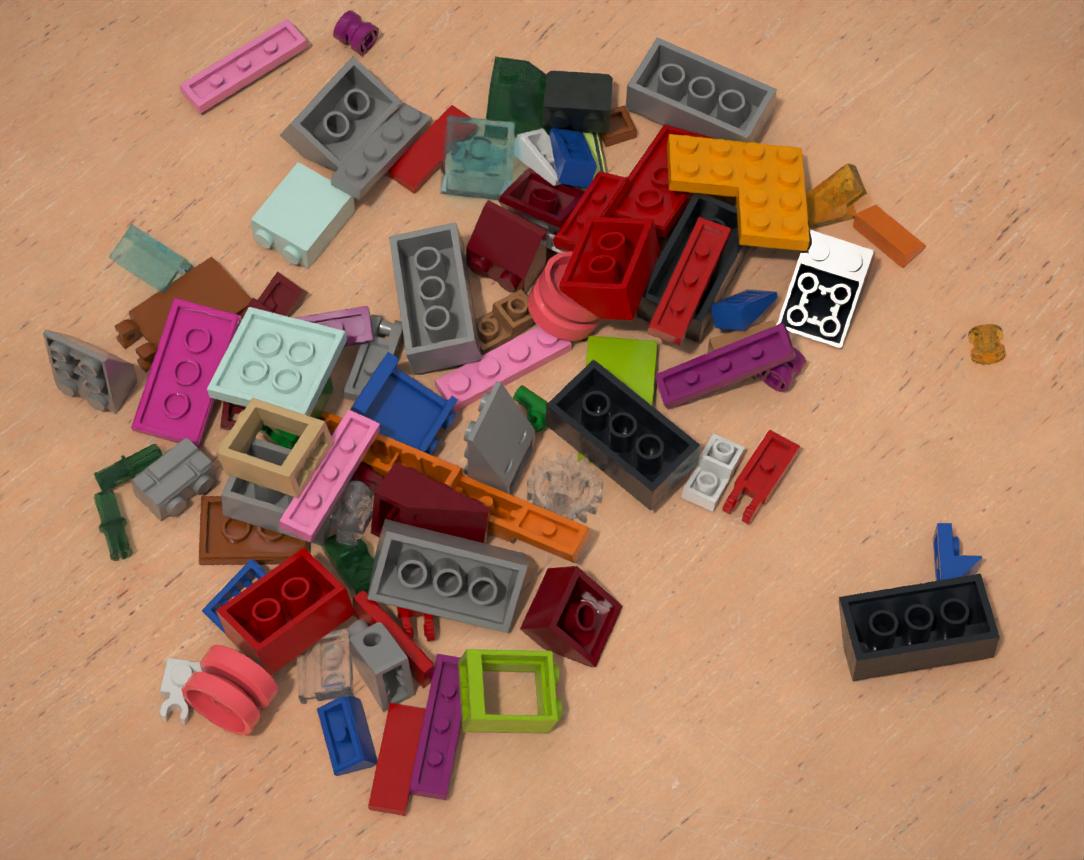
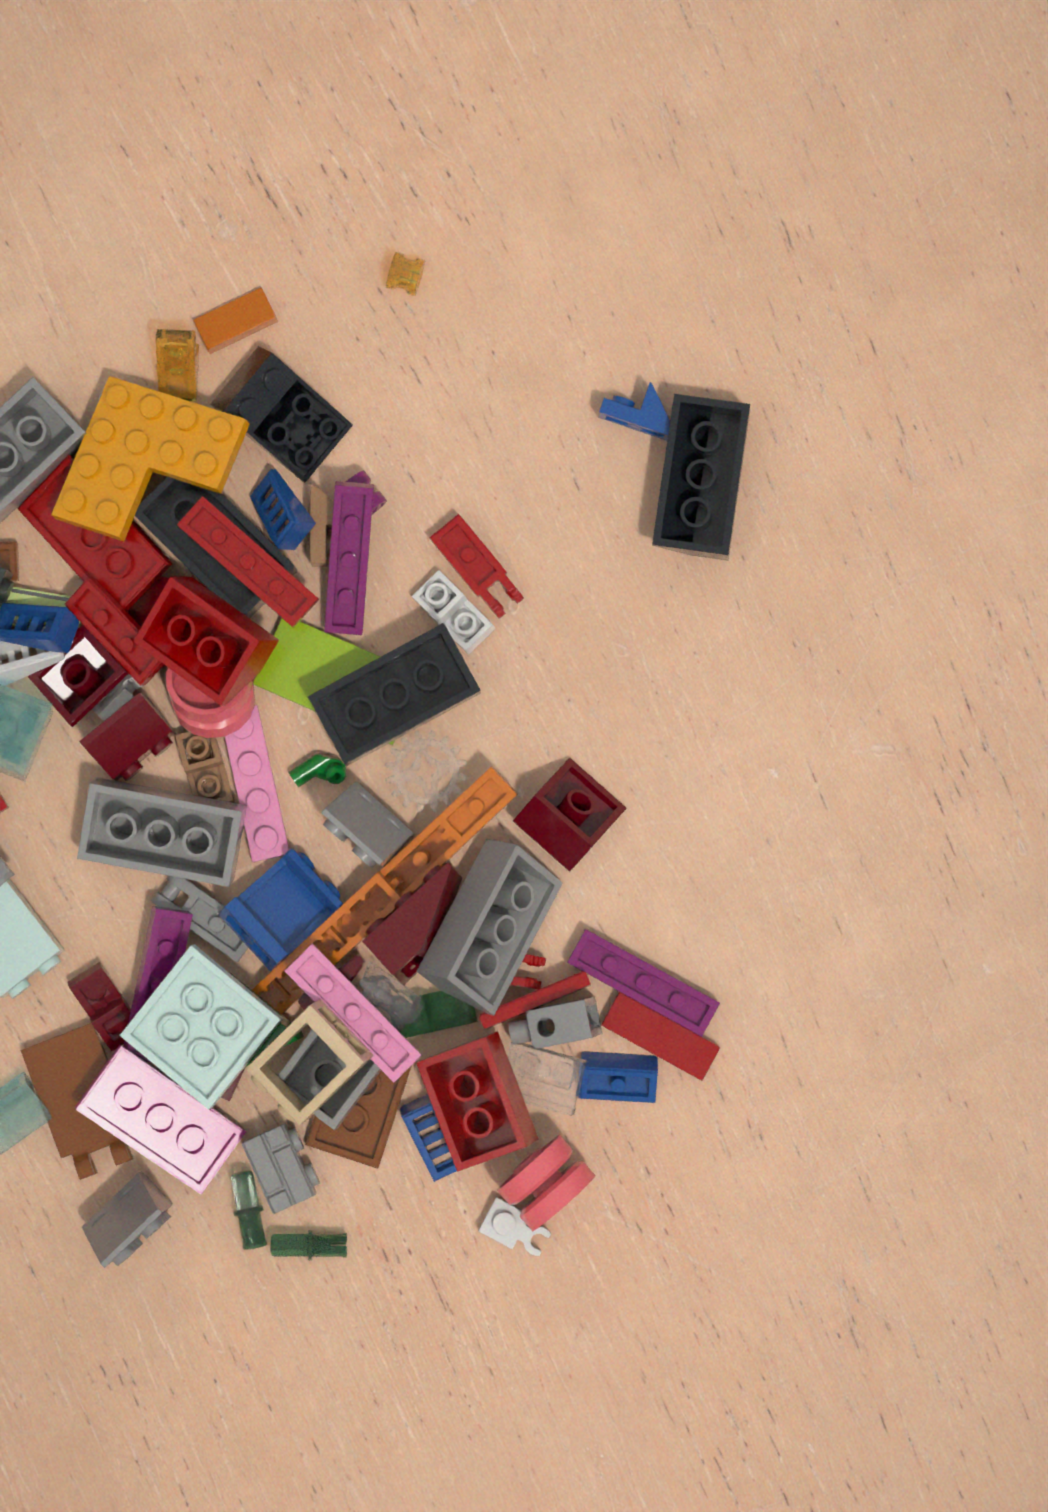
camera: 70 degrees left, 25 degrees up
(472, 690) = (629, 943): lime window -> none

